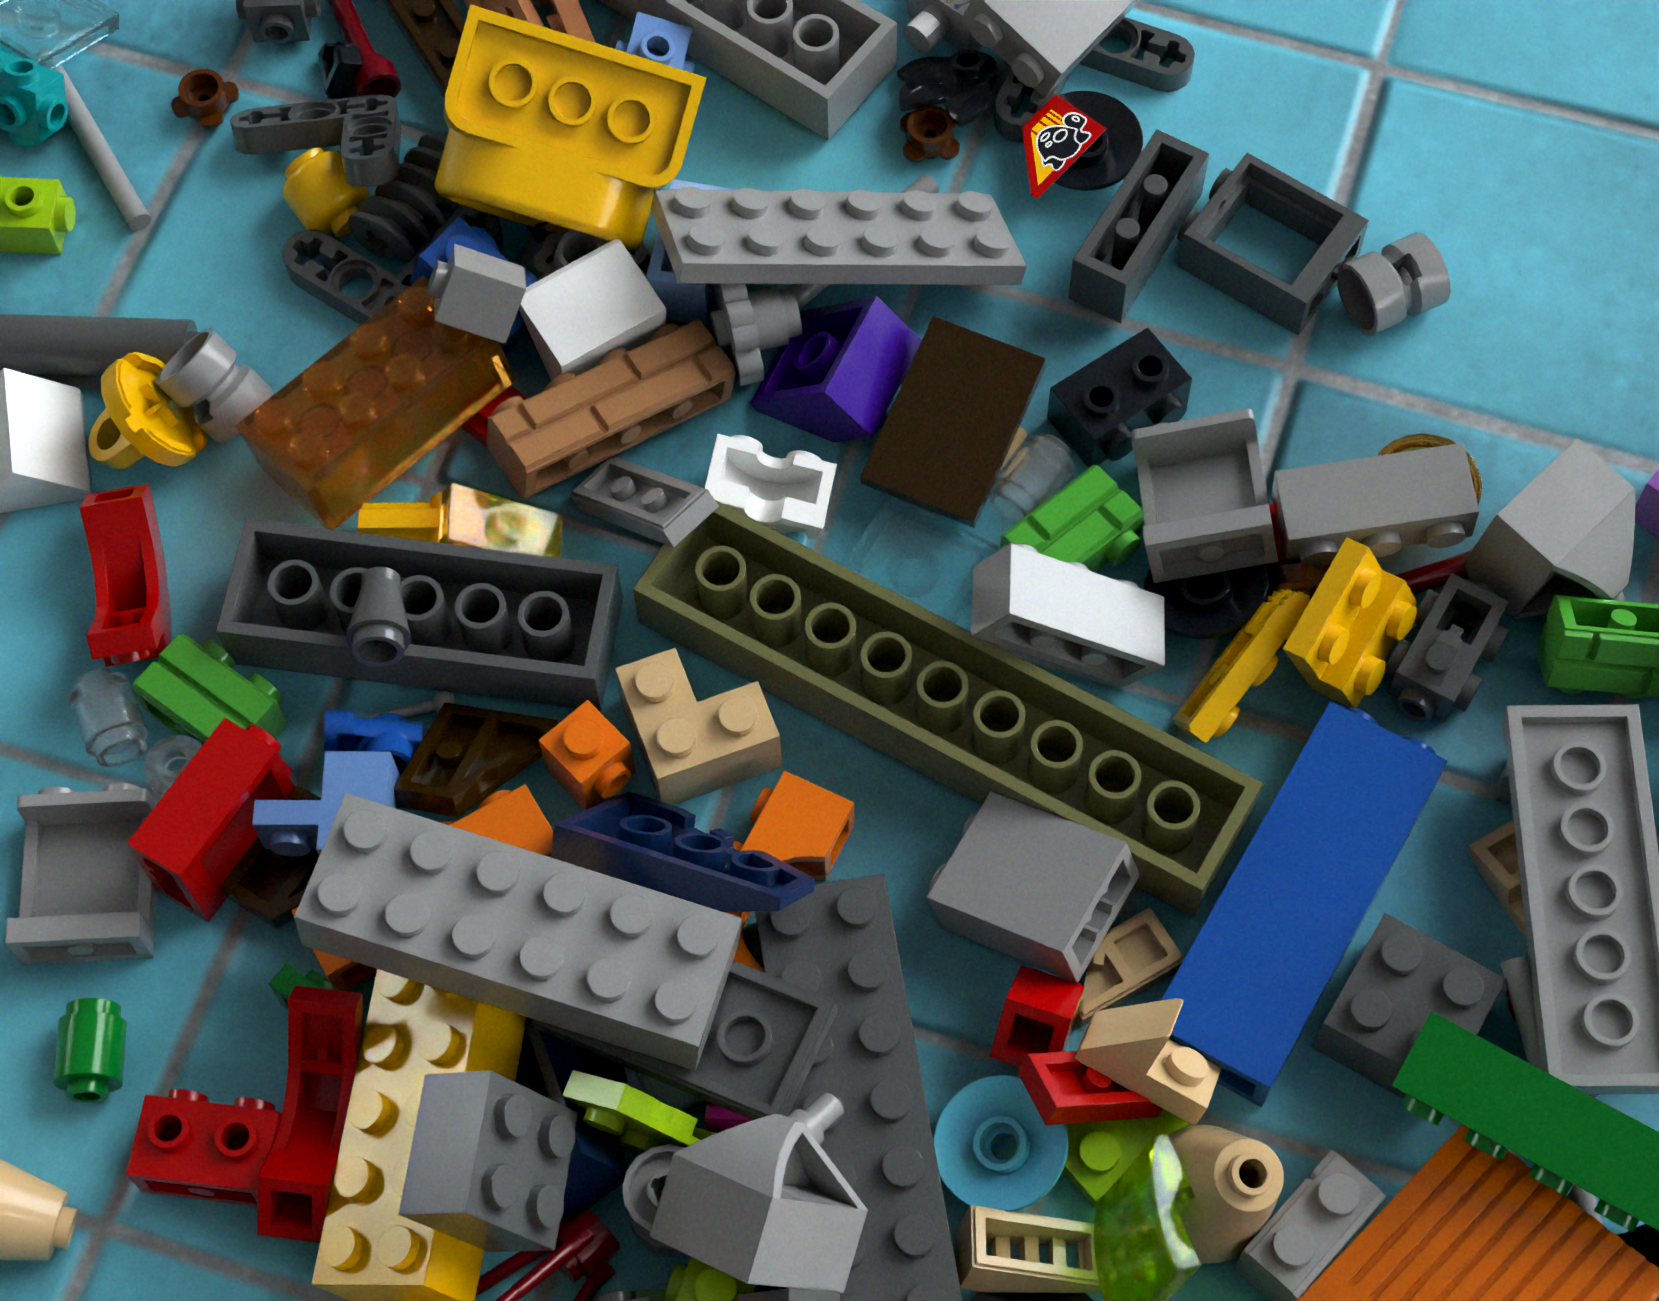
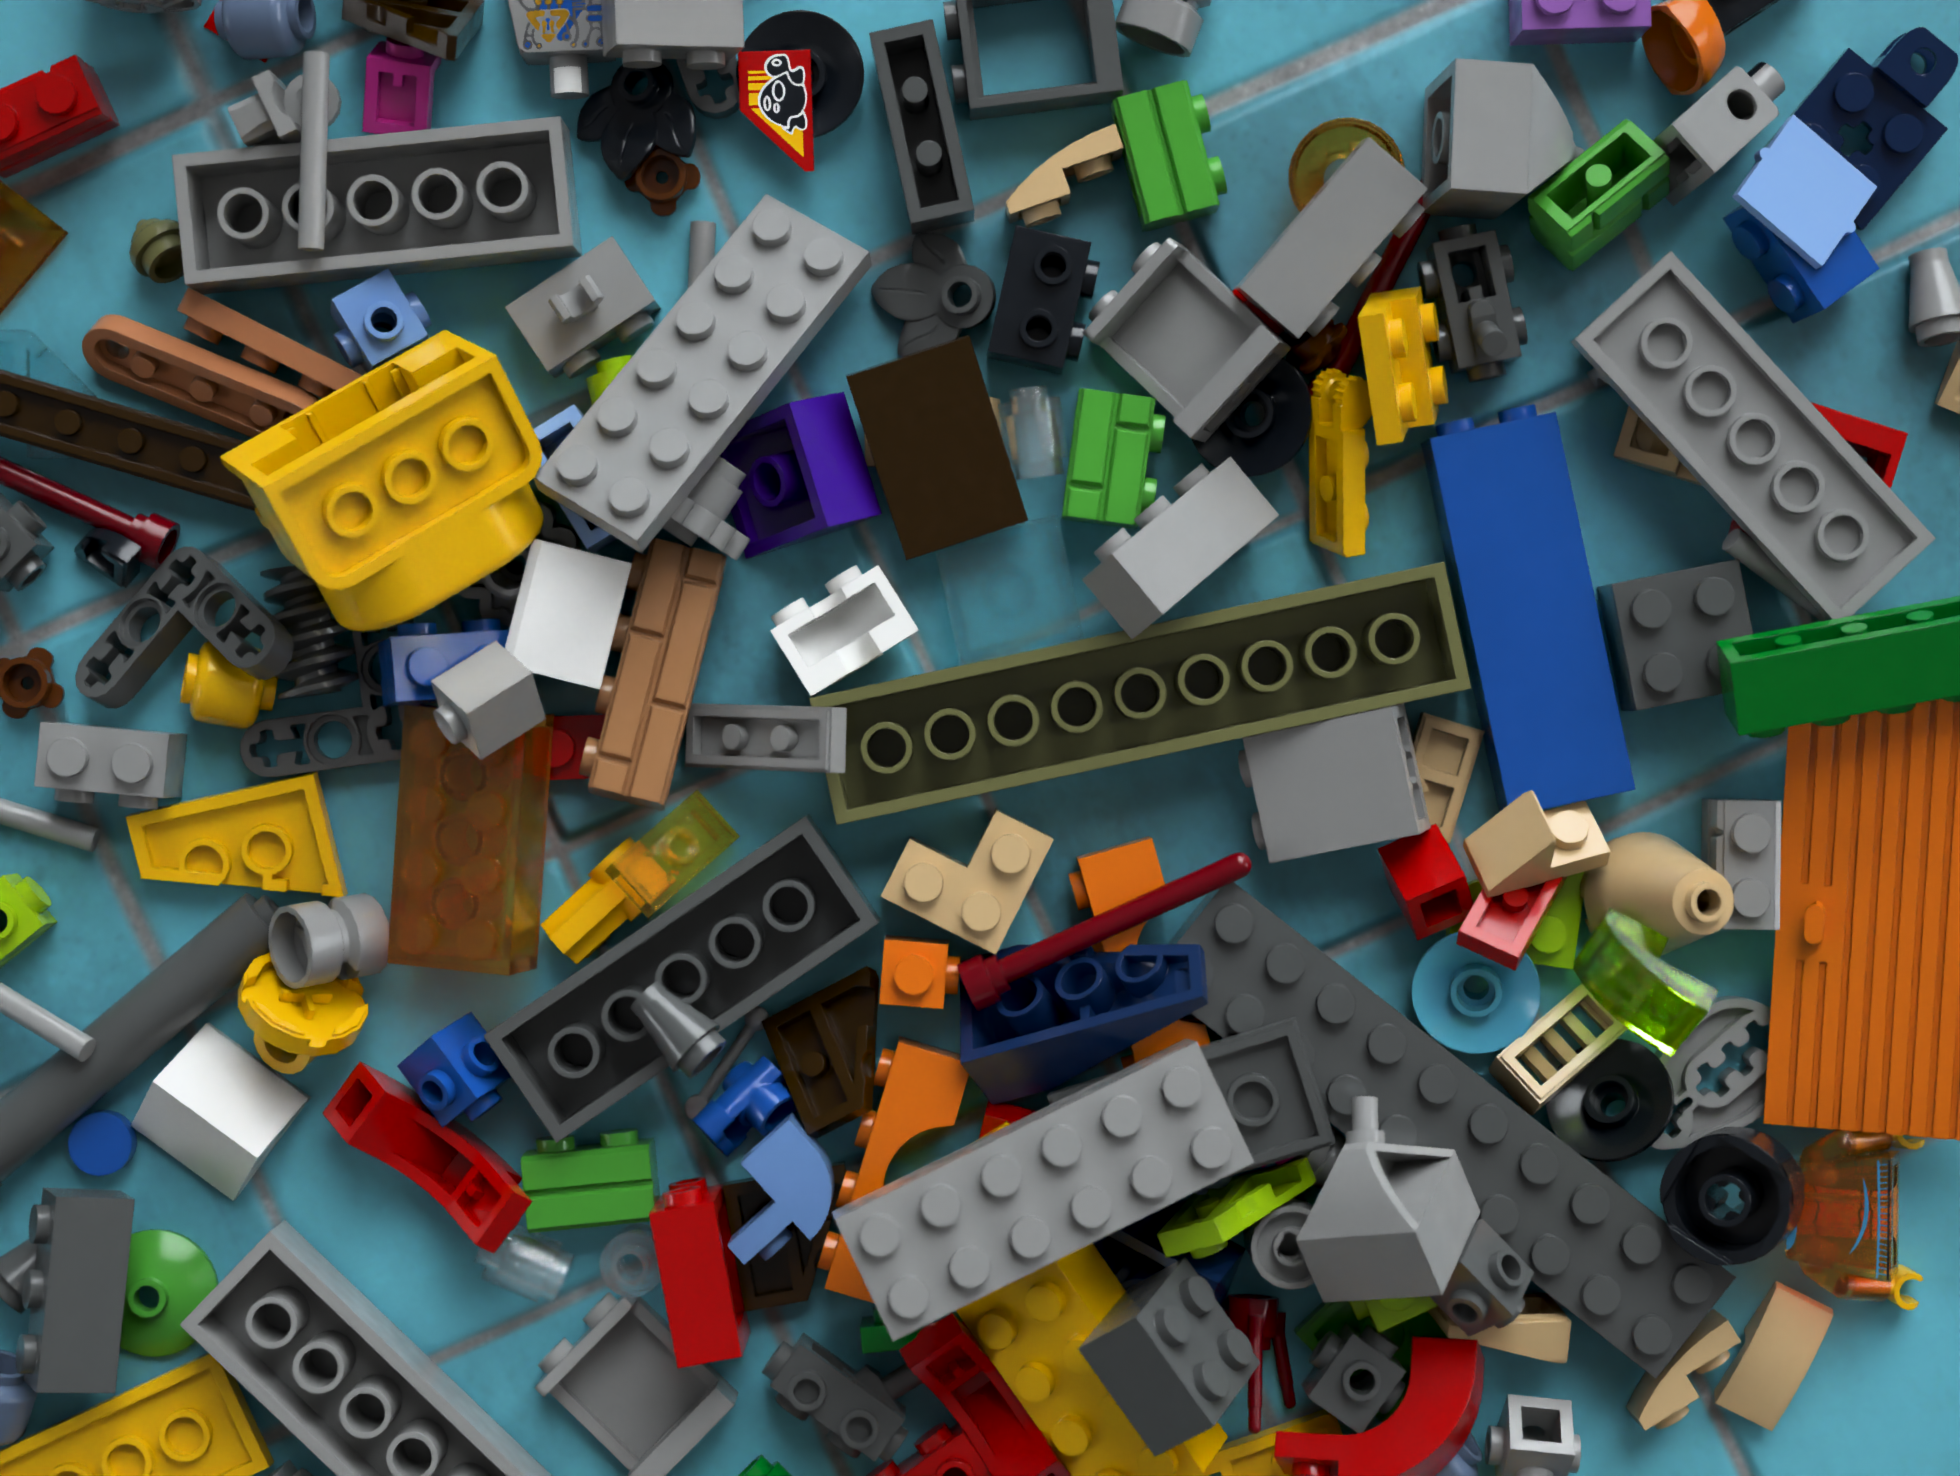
camera: 40 degrees left, 25 degrees up
(200, 542) = (456, 1072): none -> blue brick
(202, 175) = (112, 761): none -> light grey brick
(222, 1022) = (851, 1403): none -> dark grey brick
(233, 291) = (250, 837): none -> yellow wing
(635, 793) = (992, 976): none -> dark red piece
(796, 153) = (584, 310): none -> light grey brick
(1057, 336) = (925, 292): none -> dark grey plate
(1232, 332) = (1046, 187): none -> tan slope
(1301, 378) = (1167, 155): none -> bright green brick

